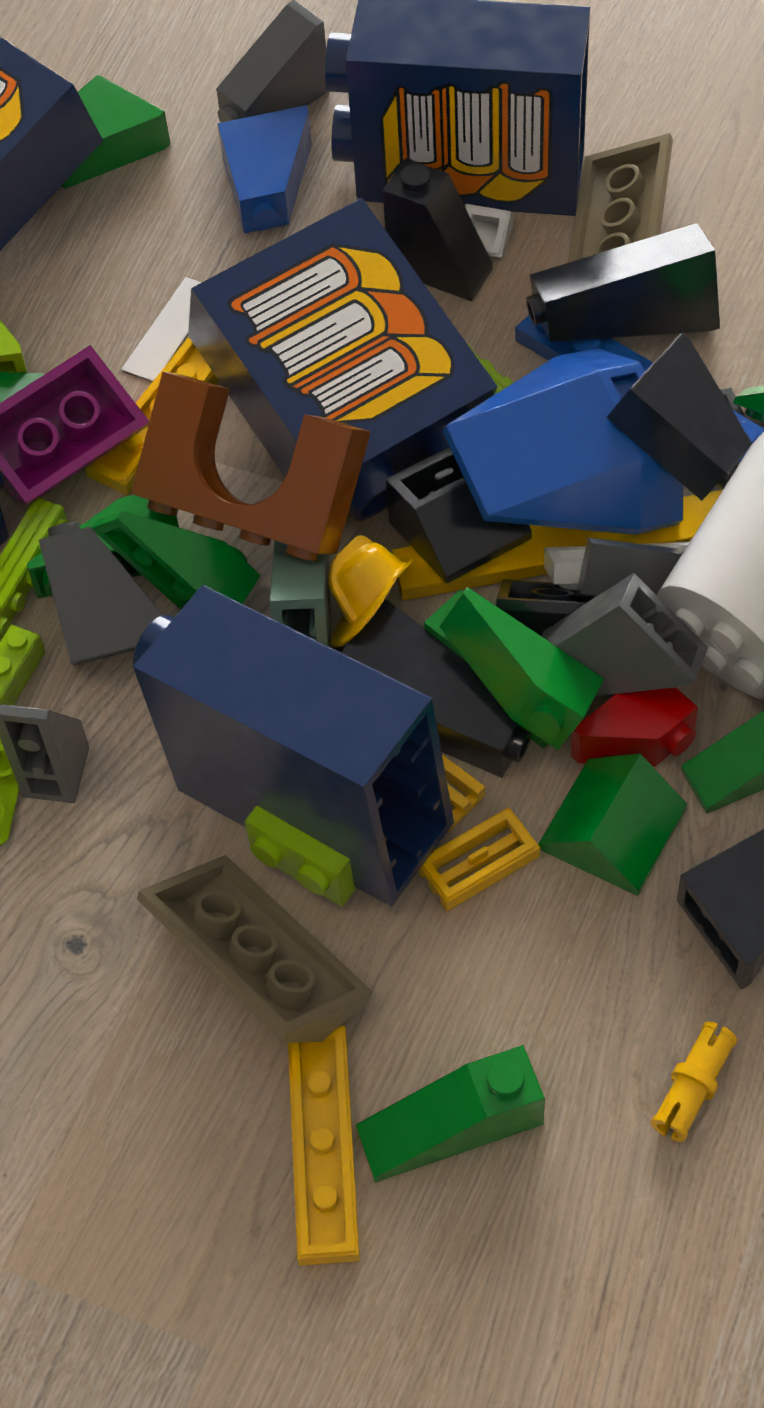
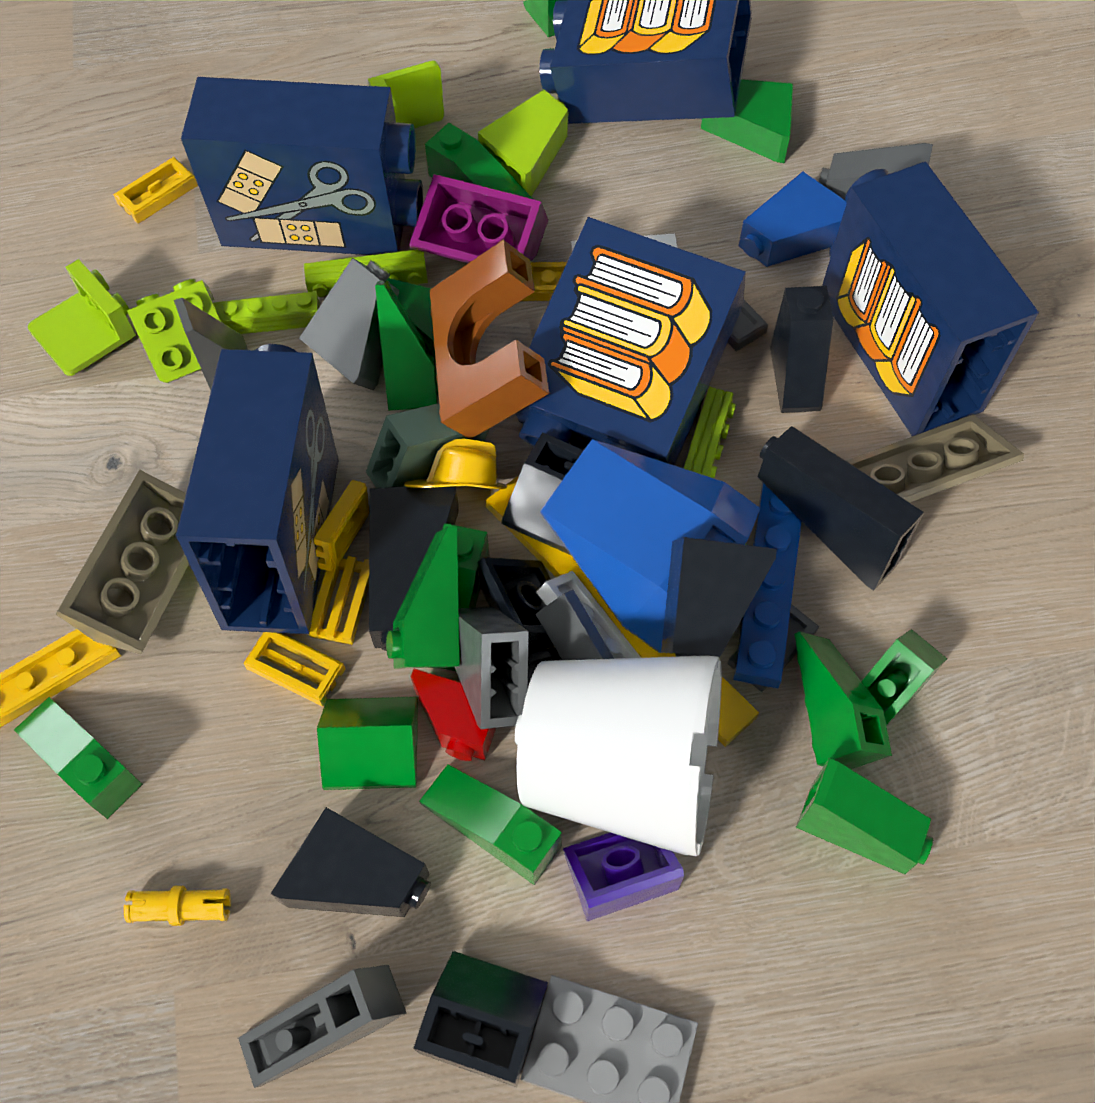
camera: 55 degrees right, 5 degrees up
(493, 228) = (848, 387): white slope -> none

